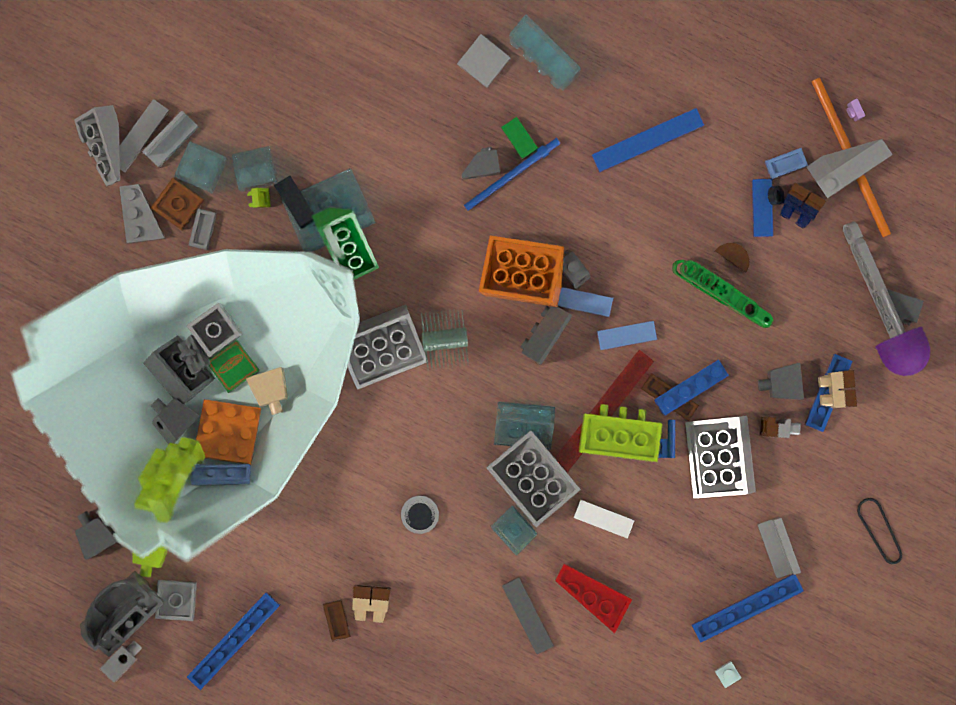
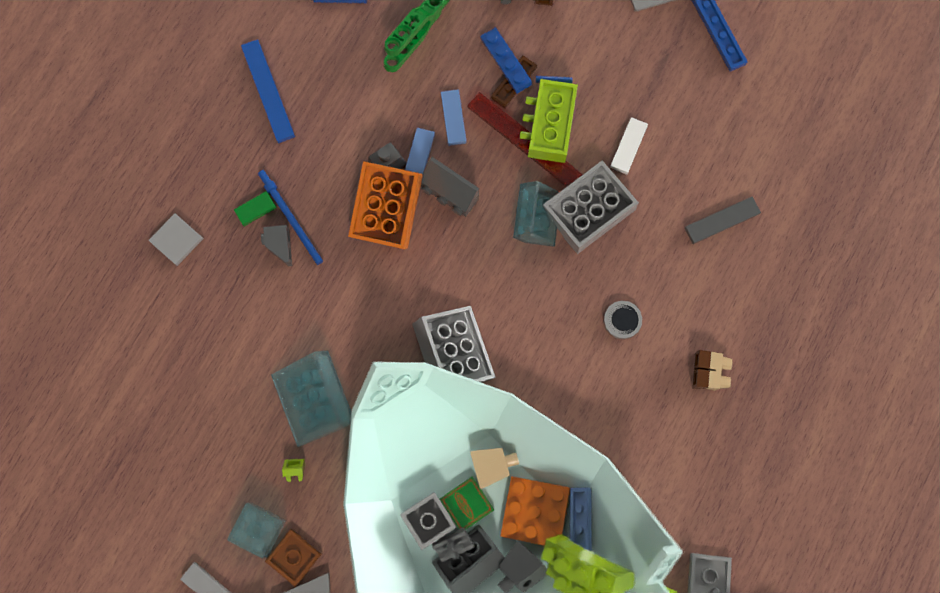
camera: 90 degrees left, 10 degrees down
(170, 139) = (224, 562): light grey panel -> none
(202, 229) = (322, 531): light grey tile -> none
(233, 641) = (752, 515): blue plate -> none
(254, 169) = (263, 472): clear light blue slope -> none
(295, 202) = (300, 430): black tile -> none
(336, 620) = (729, 407): reddish brown tile -> none
(345, 240) = (339, 376): green slope -> none
(444, 339) = (450, 283): sand green piece -> none
(513, 530) = (640, 229): clear light blue slope -> none
(544, 53) = (172, 177): clear light blue slope -> none
(599, 599) = (705, 154): red wing -> none
(720, 457) = (572, 38): light grey slope -> none
(727, 674) = (776, 41): light aqua plate -> none
(735, 254) = (382, 18): reddish brown tile -> none

